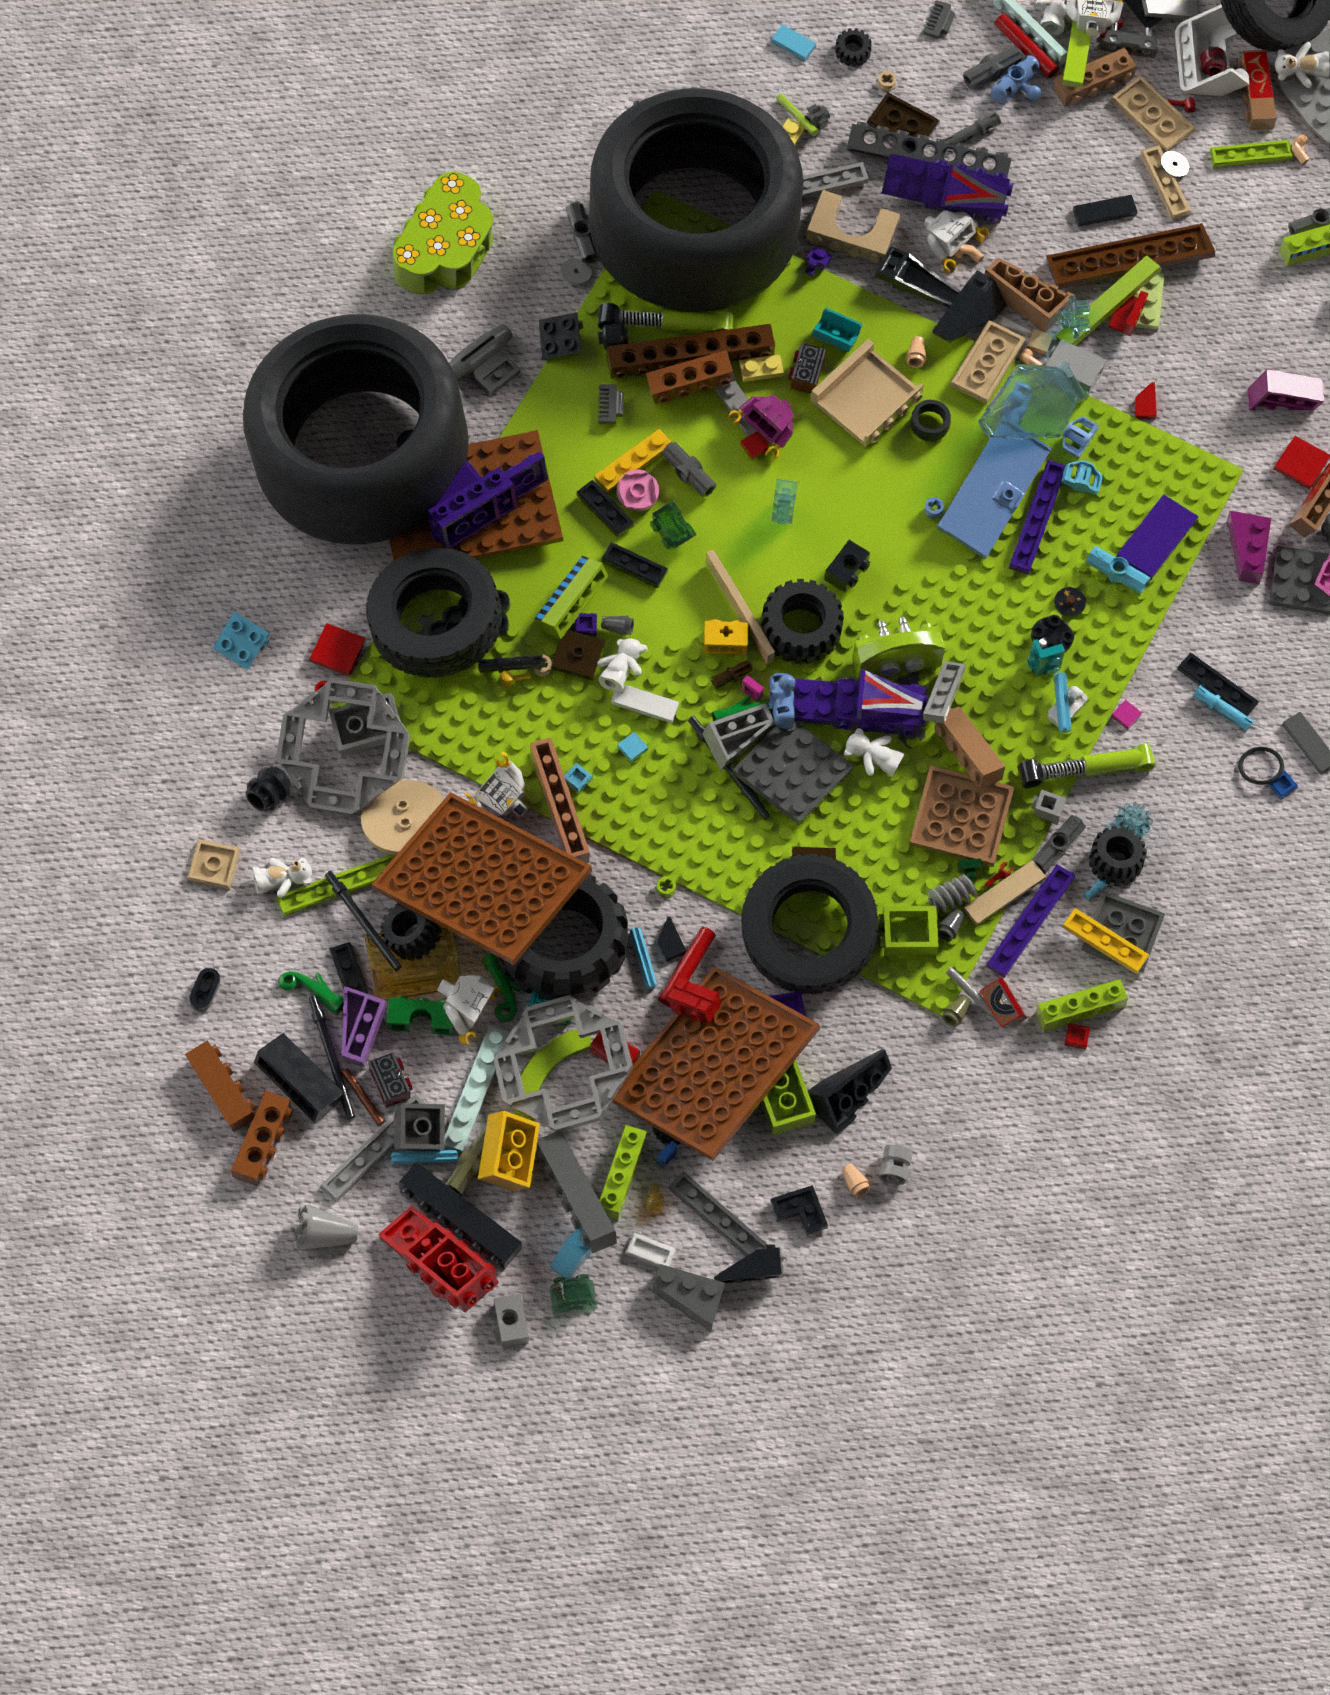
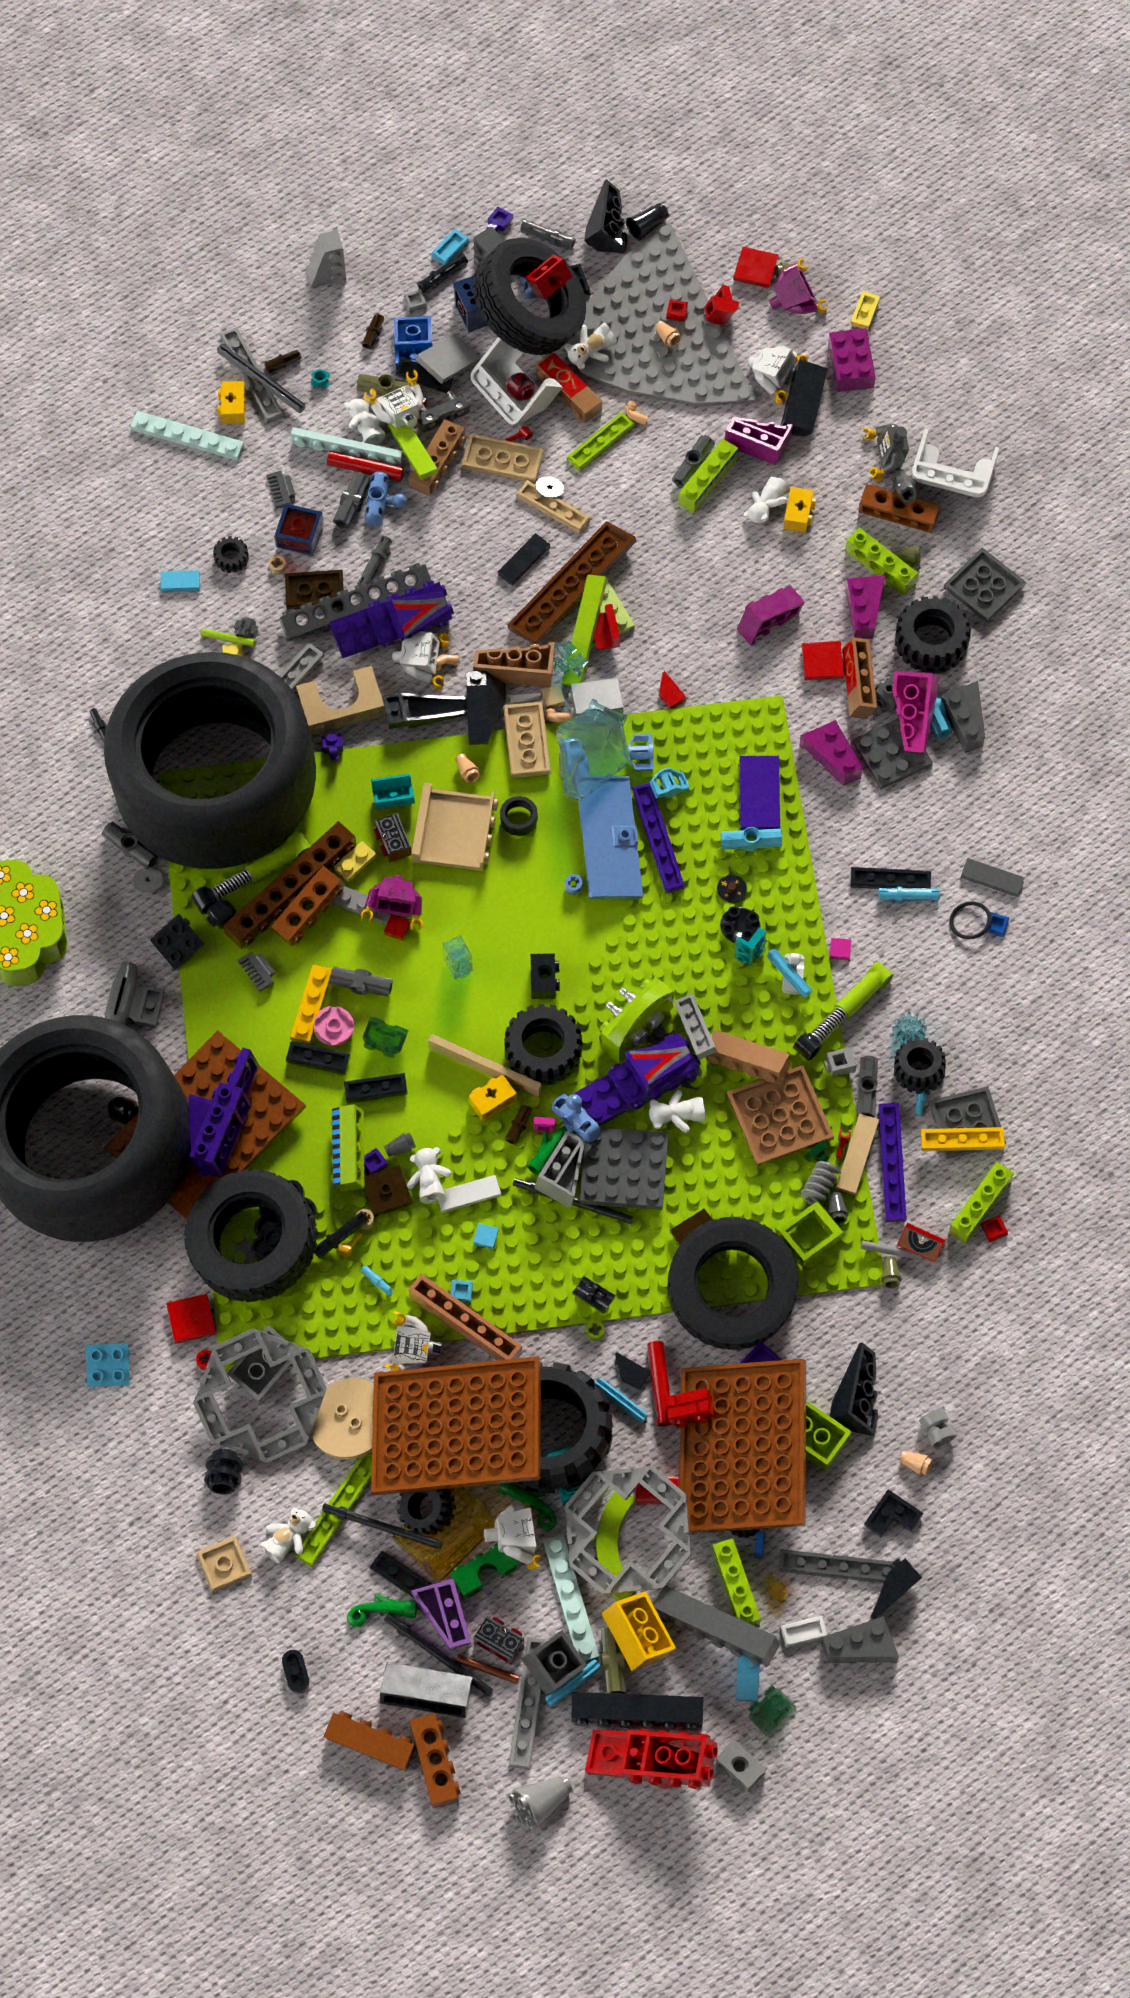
camera: 30 degrees left, 0 degrees up
(513, 721) = (376, 1280): none -> medium azure piece
(685, 854) = (593, 1294): none -> black hips
(926, 62) = (299, 529): none -> piece

